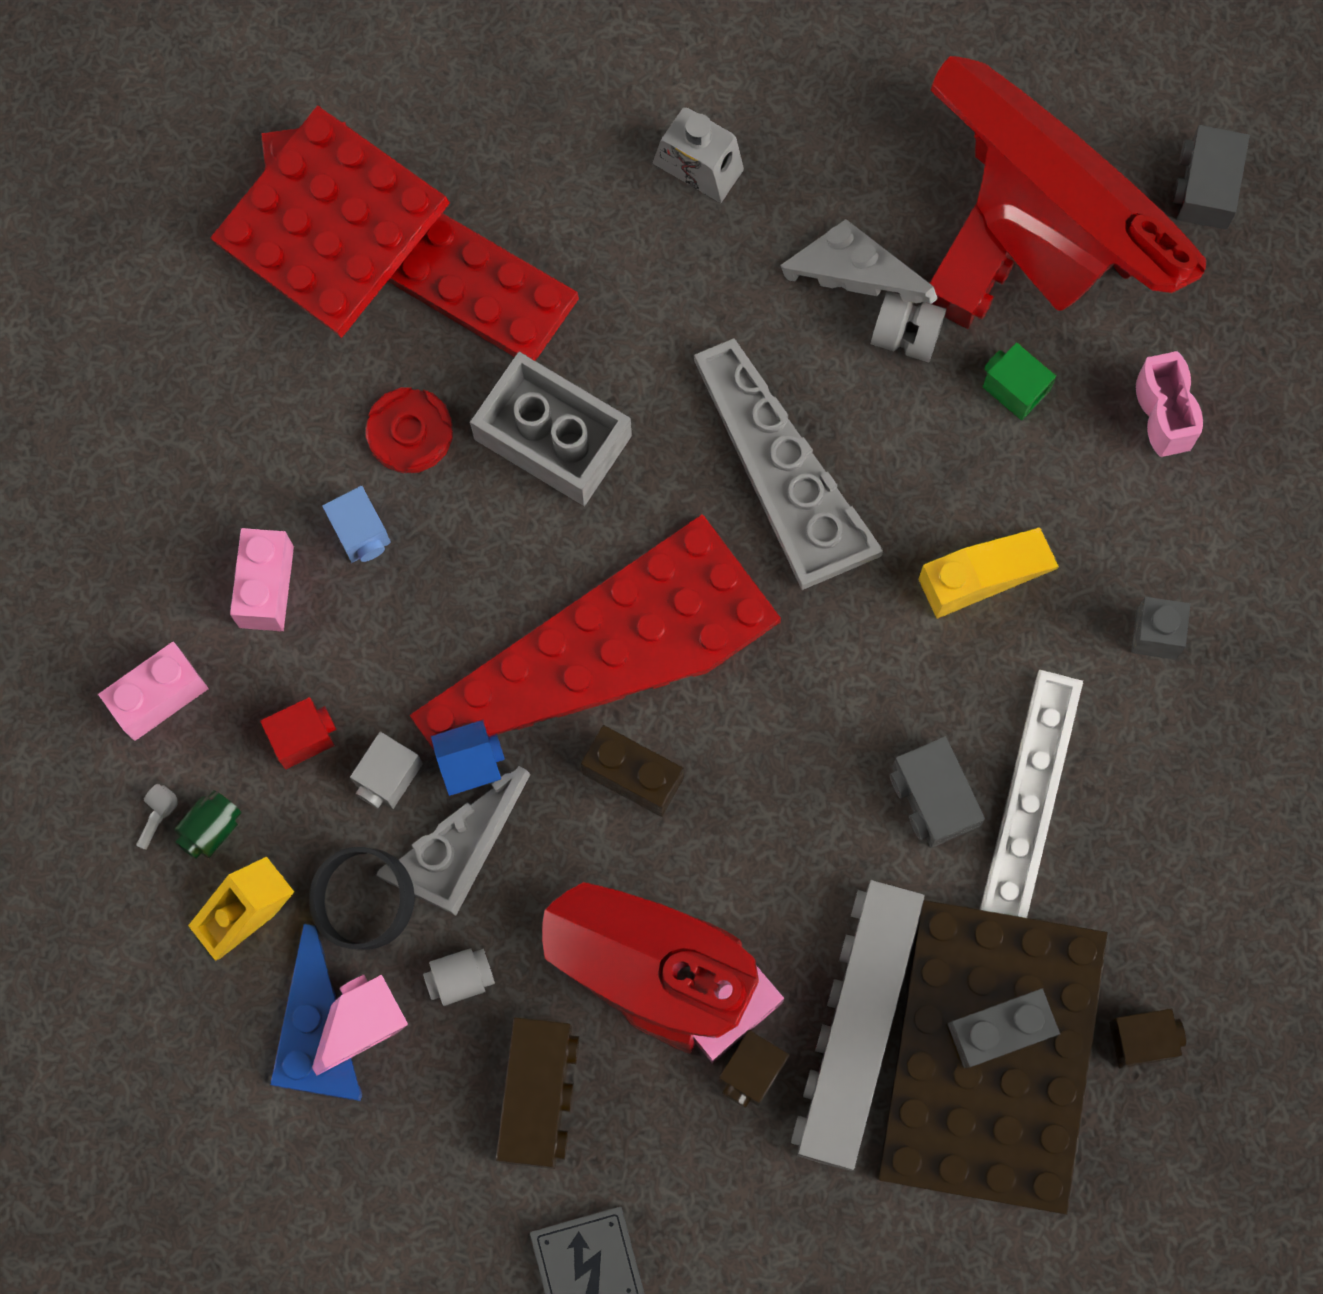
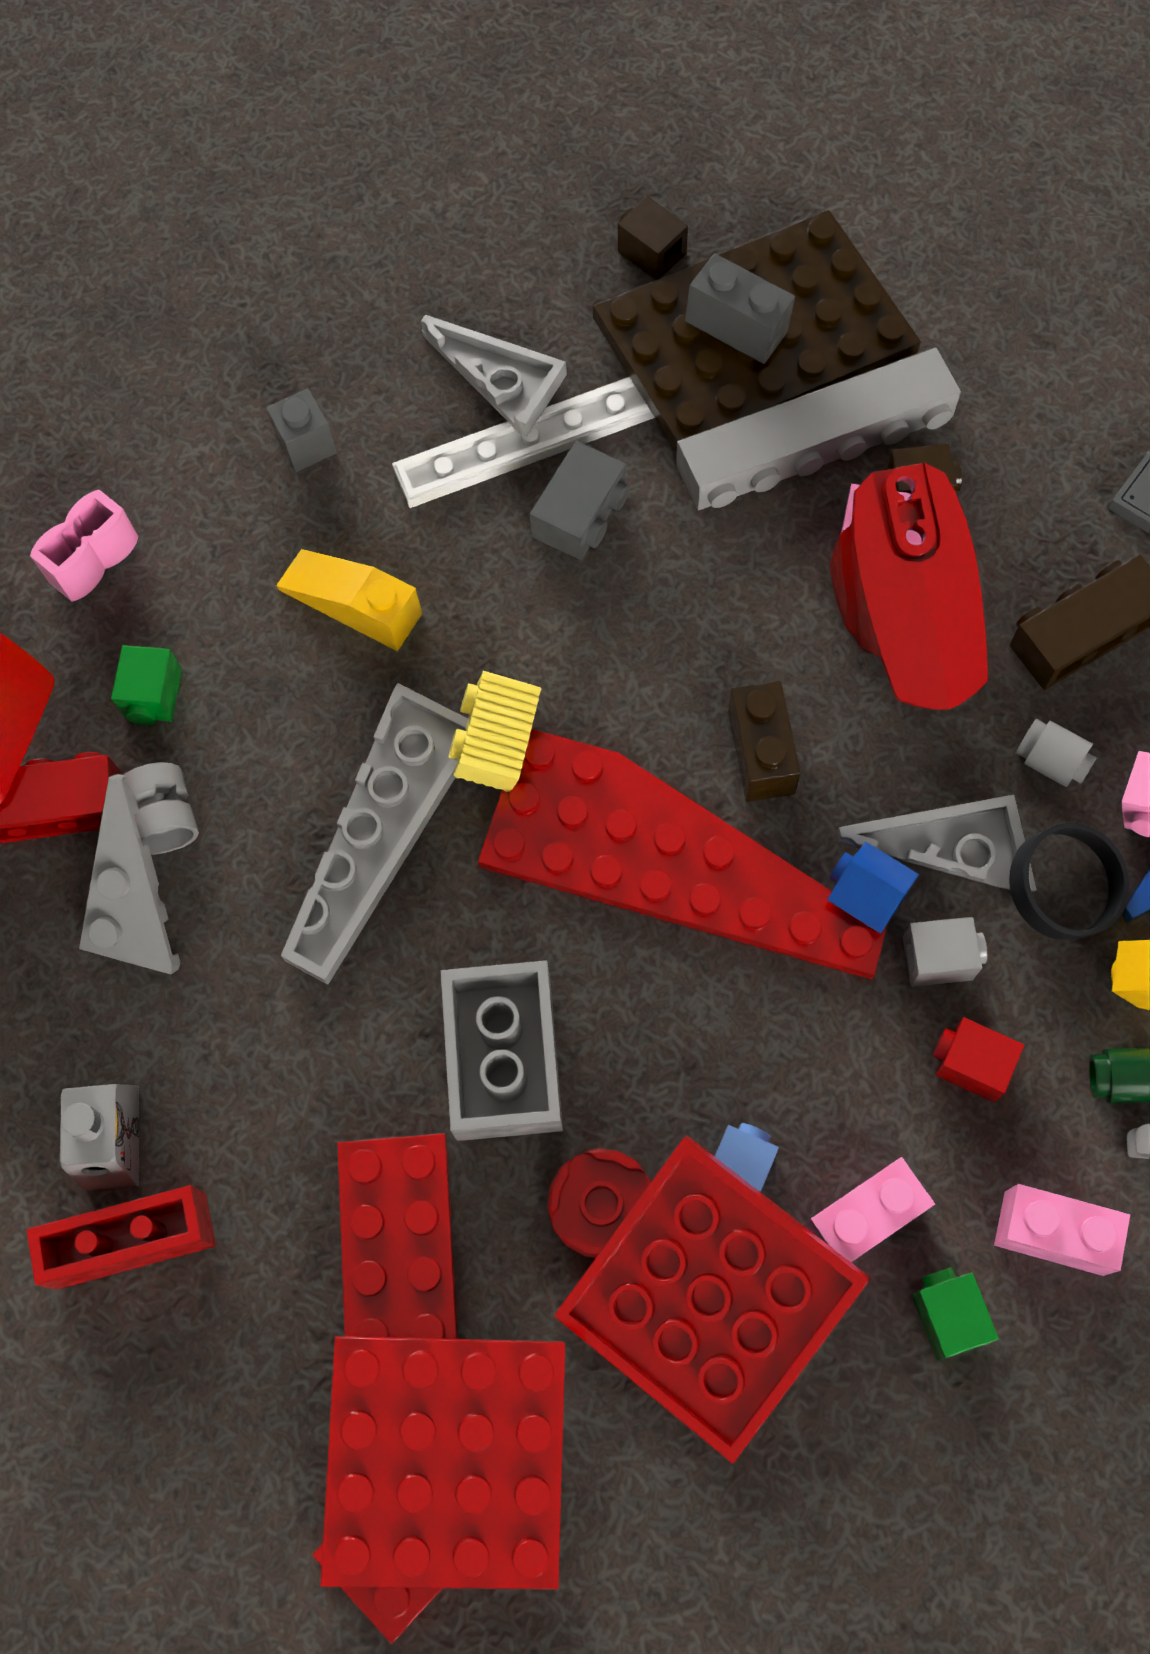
camera: 125 degrees left, 5 degrees down
(163, 584) = (953, 1313): none -> green brick
(293, 441) = (711, 1298): none -> red plate
(617, 125) = (120, 1238): none -> red brick
(783, 583) = (495, 732): none -> light yellow brick
(1093, 824) = (505, 374): none -> light grey wing

